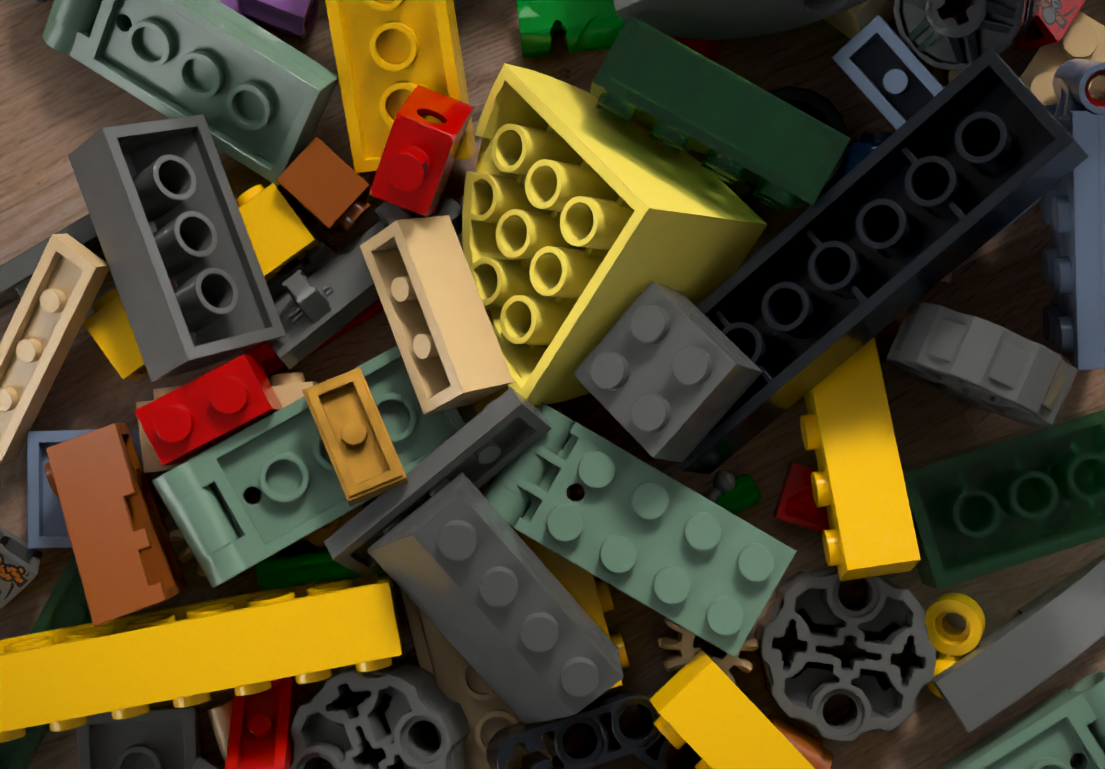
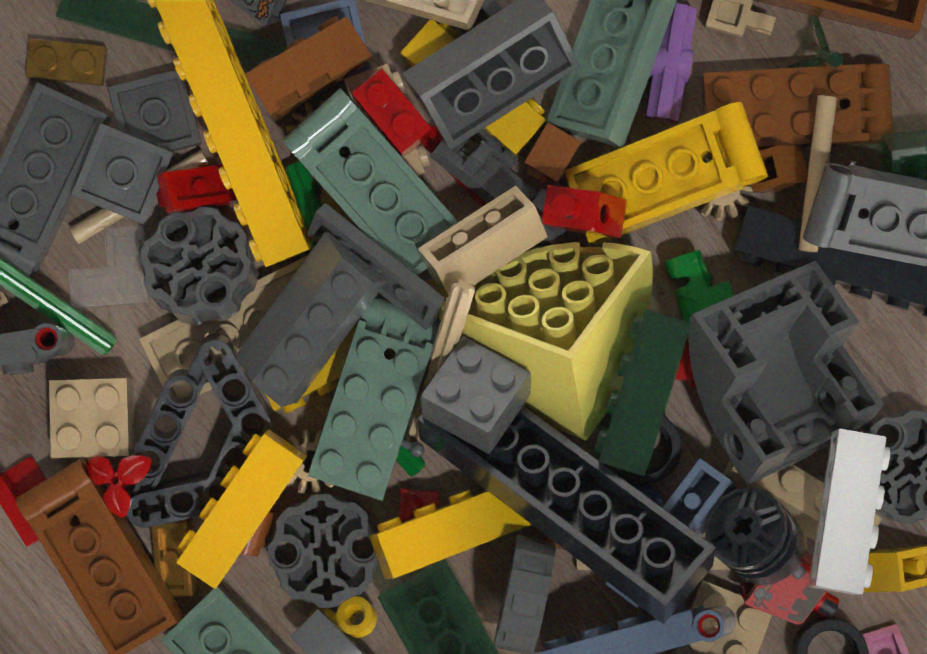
camera: 70 degrees right, 0 degrees up
(355, 436) = (395, 208): pearl gold plate -> none
(574, 401) = (445, 341): none -> tan axle

